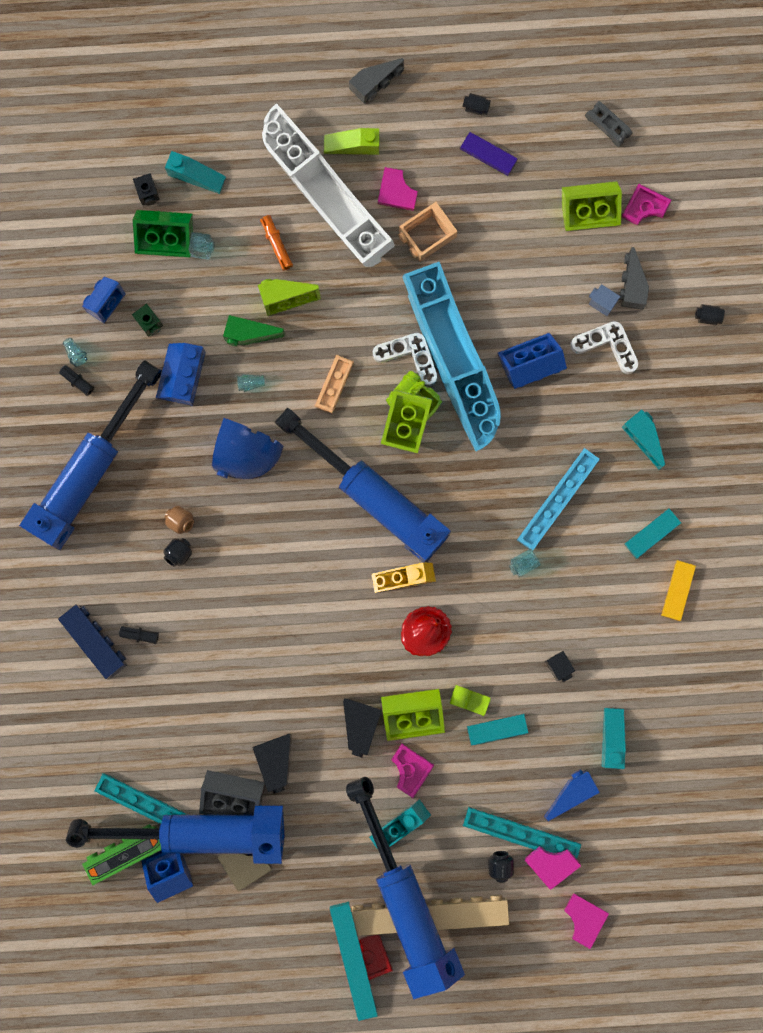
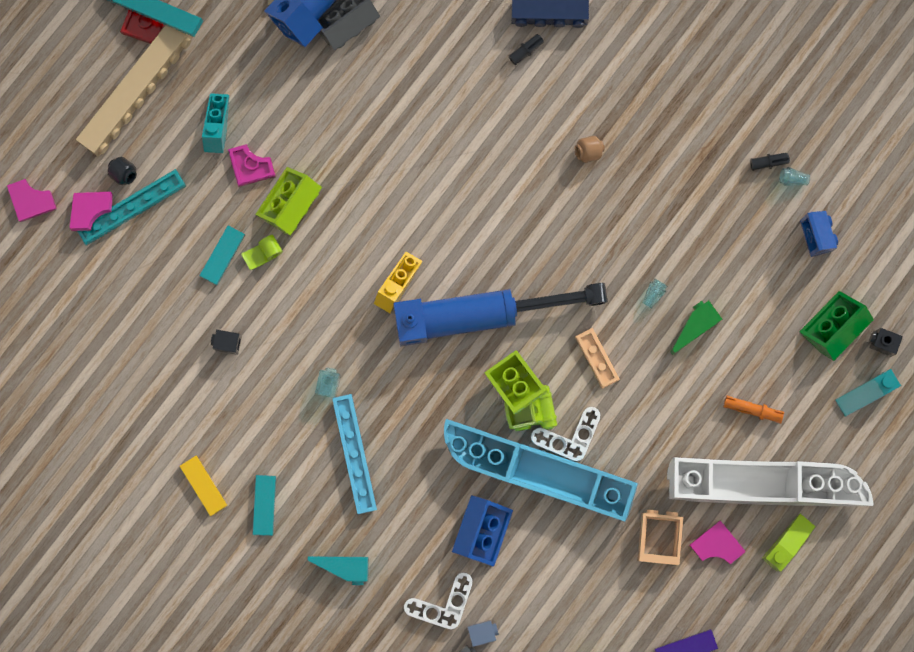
camera: 130 degrees right, 0 degrees up
(82, 473) = (670, 53): blue piece -> none
(147, 320) = (772, 254): dark green brick -> none
(177, 552) = (565, 127): black head -> none
(181, 373) = (706, 245): blue slope -> none
(201, 245) = (800, 346): clear light blue brick -> none
(243, 453) = (600, 240): blue brick -> none
(274, 762) = (344, 70): black slope -> none
(285, 295) = (705, 370): lime slope -> none
(360, 726) = (315, 155): black slope -> none
(374, 78) = (831, 603): dark grey slope -> none
(426, 631) = (341, 263): red piece -> none
(431, 966) = (95, 55): blue piece -> none
(574, 792) = (125, 271): blue slope -> none
(613, 739) = (138, 335): teal slope -> none

